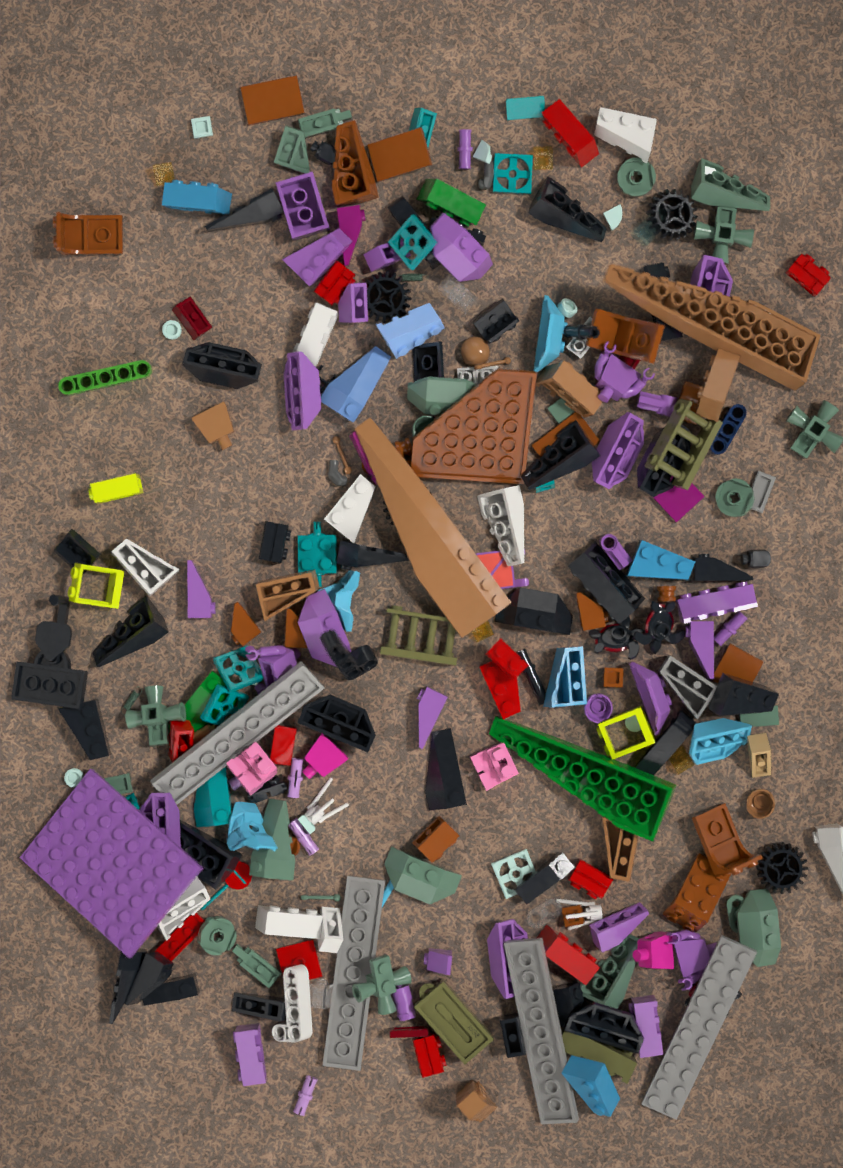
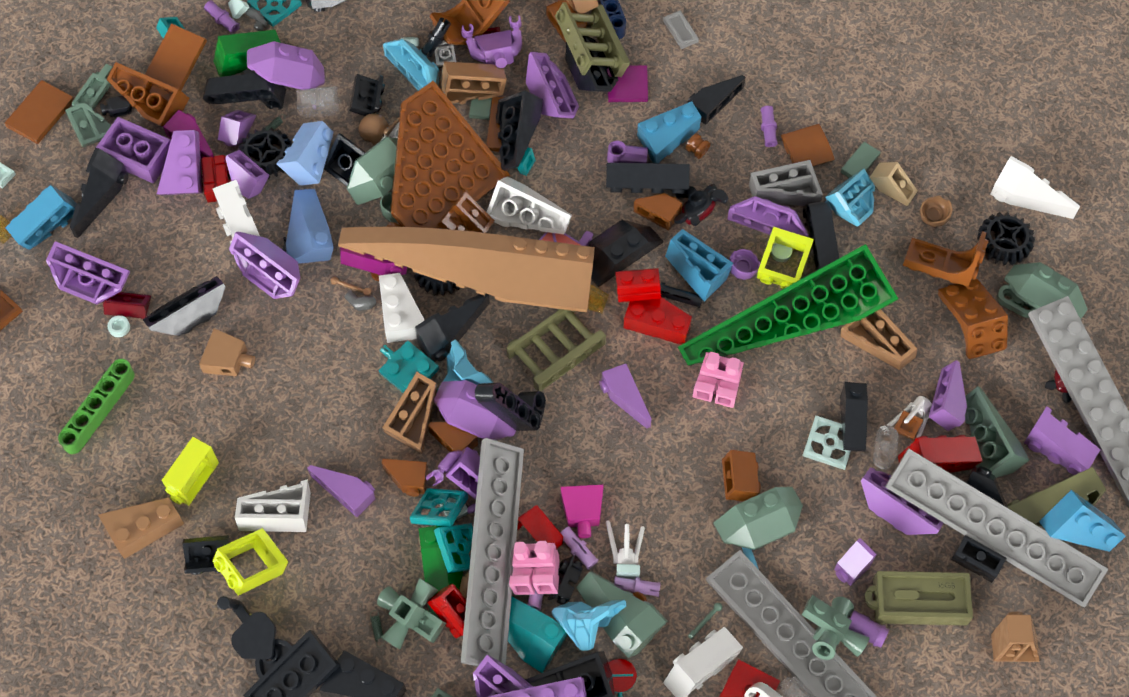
camera: 50 degrees left, 25 degrees down
(56, 490) = (140, 524): none -> medium nougat wedge
(139, 630) = (323, 561): black wedge -> none
(184, 274) = (84, 274): none -> medium lavender wedge
(274, 542) = (364, 392): black brick -> none
(331, 930) = (747, 633): white slope -> none
(340, 721) = (565, 464): black wedge -> none
(411, 1031) = (899, 647): dark red tile -> none
(421, 253) = (231, 91): teal piece -> none
(428, 1054) = (936, 648): red brick -> none
(444, 780) = (693, 427): black wedge -> none
(457, 490) = (466, 216): none -> dark orange slope
(590, 878) = (888, 385): red brick -> none
(606, 1026) = (1036, 467): black wedge -> none
(613, 677) = (729, 235): dark orange plate -> none
(655, 951) = (999, 383): dark pink torso -> none
(658, 403) = (547, 38): medium lavender piece -> none
(659, 627) = (720, 169): black animal -> none
(681, 760) = (846, 242): clear yellow slope -> none
(691, 955) = (1025, 361): medium lavender torso -> none
(702, 643) = (763, 151): medium lavender slope -> none
(716, 602) = (738, 119): medium lavender wedge -> none
(731, 487) = (668, 55): sand green plate -> none
(741, 697) = (831, 148): black wedge -> none
(756, 558) = (730, 68): black arm -> none

